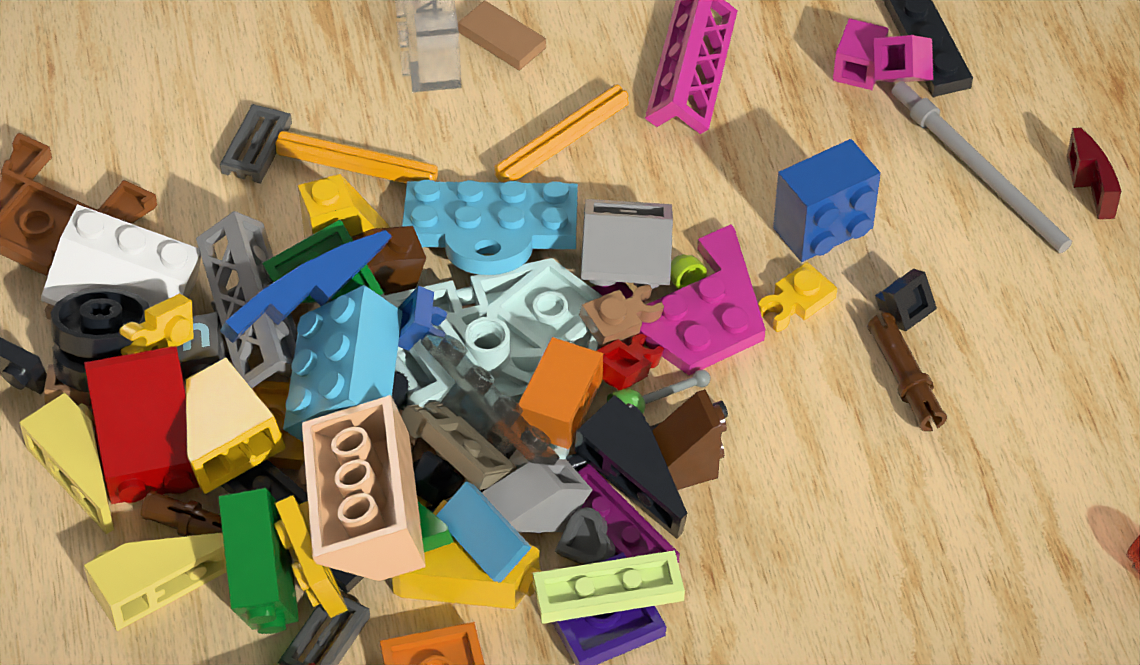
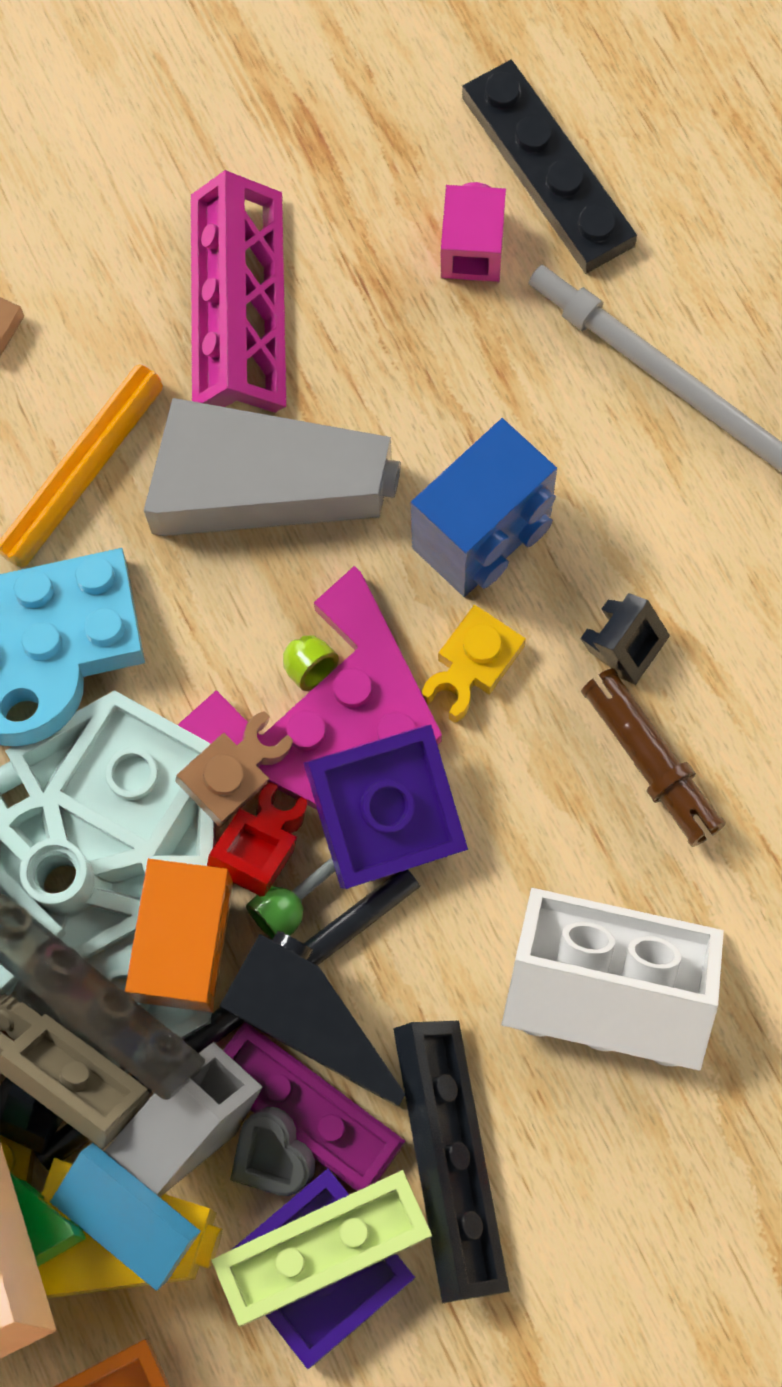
camera: 10 degrees left, 20 degrees up
(626, 243) = (216, 650): light grey slope -> none
(685, 159) = (263, 470): none -> light grey slope
(692, 441) = (381, 969): reddish brown slope -> none
(708, 568) = (450, 1160): none -> black plate
(717, 353) = (385, 806): none -> dark purple plate
(845, 490) = (615, 979): none -> white slope
(903, 59) = (537, 237): dark pink brick -> none

